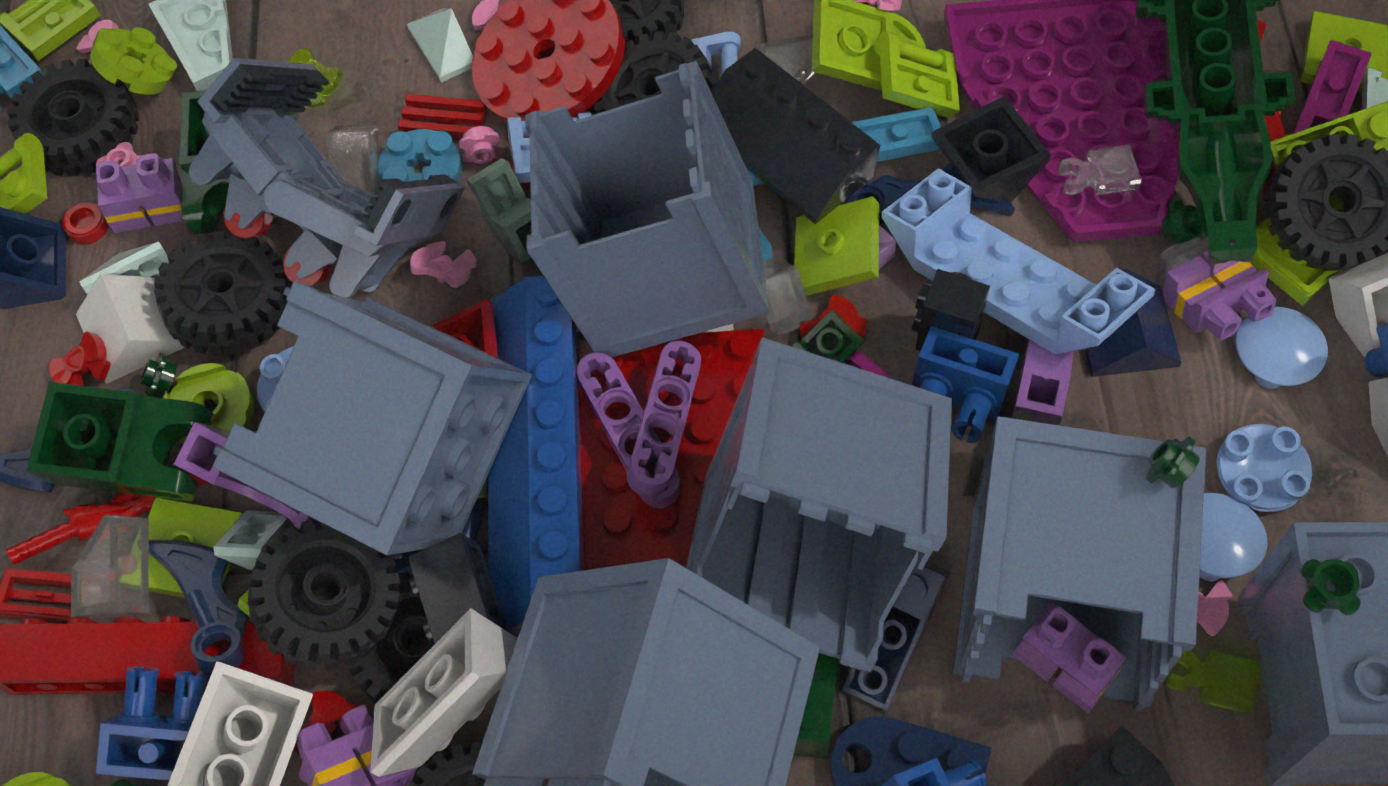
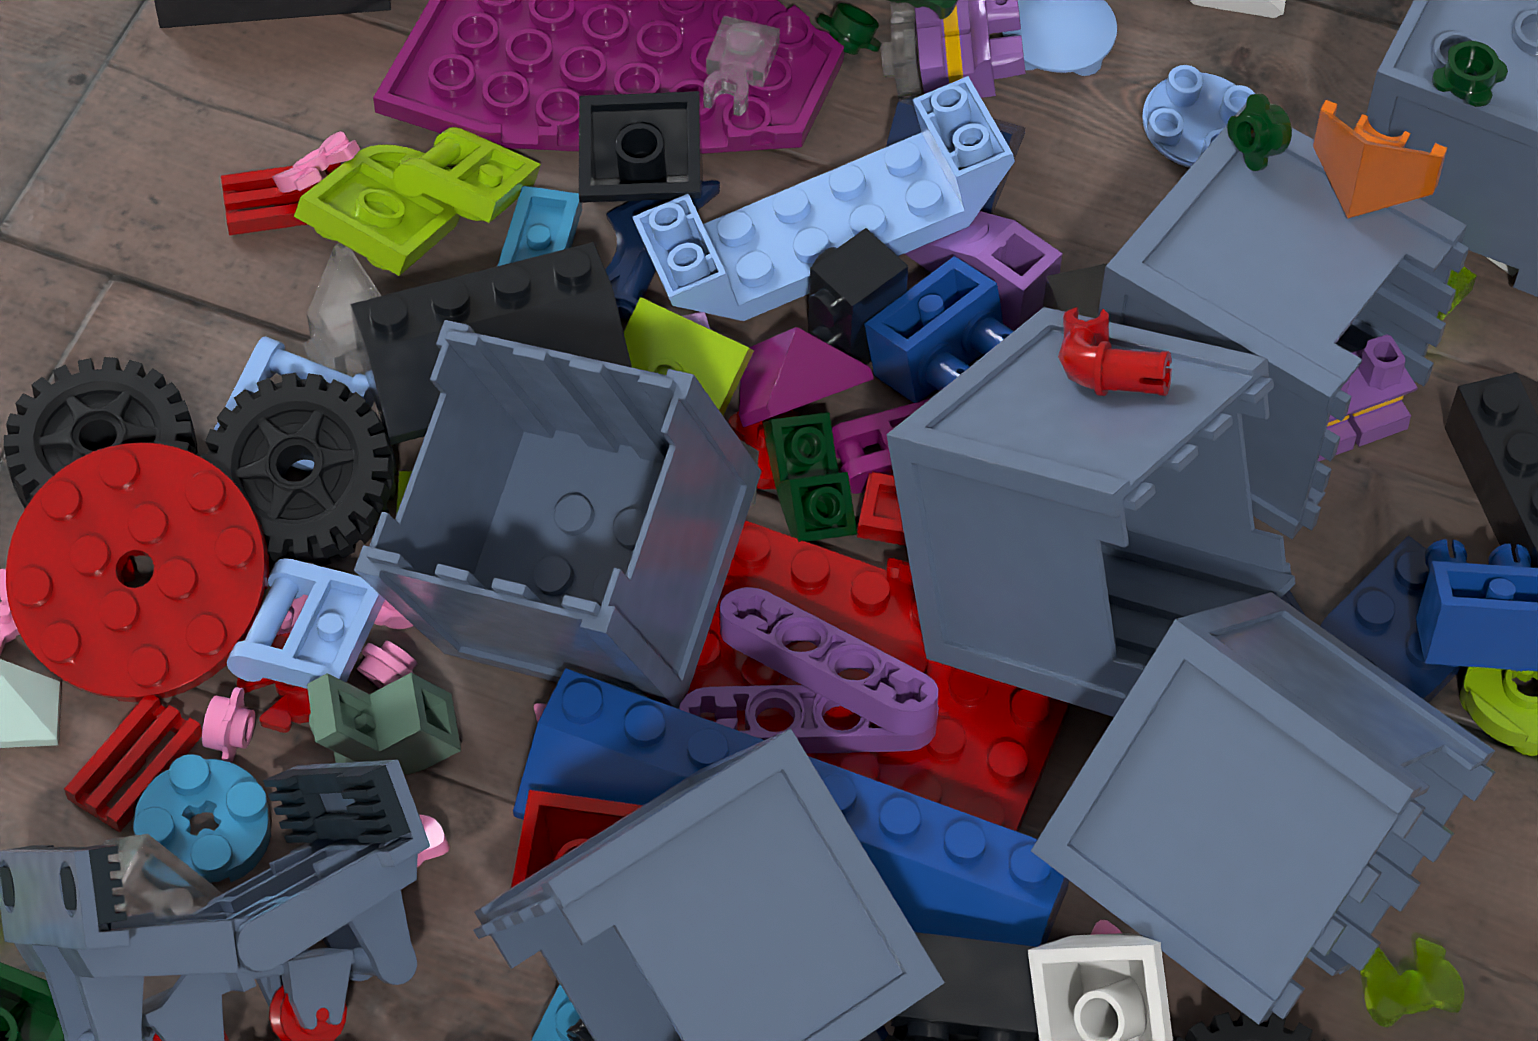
camera: 70 degrees left, 5 degrees down
(878, 313) = (792, 373): none -> magenta slope
(878, 432) = (1095, 365): none -> red piece
(1189, 547) = (1372, 168): none -> orange slope

